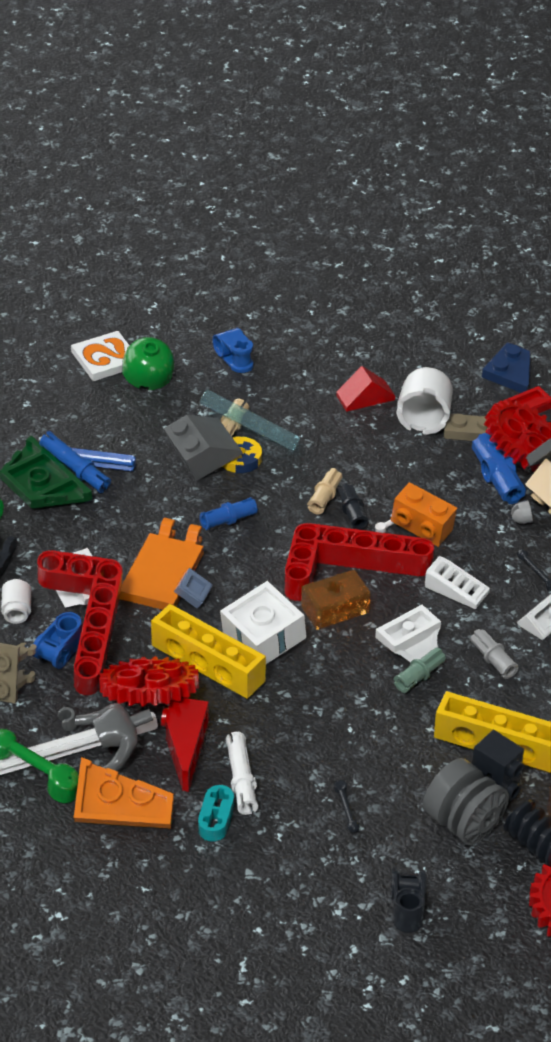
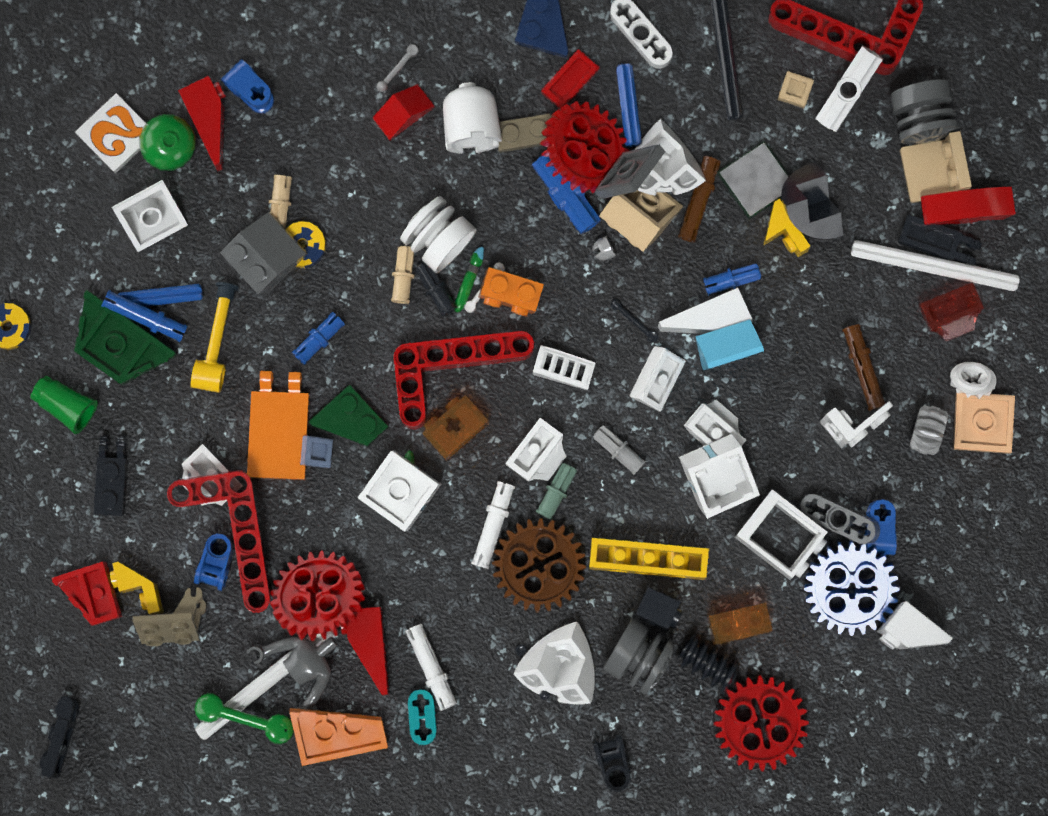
camera: 15 degrees left, 40 degrees up
(16, 601) = (155, 520): white brick -> none
(110, 400) = (150, 215): none -> white slope
(119, 513) = (208, 373): none -> yellow piece
(190, 354) = (207, 113): none -> red slope
(209, 650) = (358, 538): yellow brick -> none
(232, 573) = (350, 418): none -> dark green wing
(250, 420) = (300, 203): clear light blue axle -> none
(353, 671) = (496, 513): none -> white pin
(368, 459) = (442, 238): none -> white wheel
(377, 801) = (560, 666): none -> white brick
(382, 512) = (475, 262): none -> green piece
(383, 718) = (551, 589): none -> reddish brown gear
(387, 361) = (412, 51): none -> light grey hinge

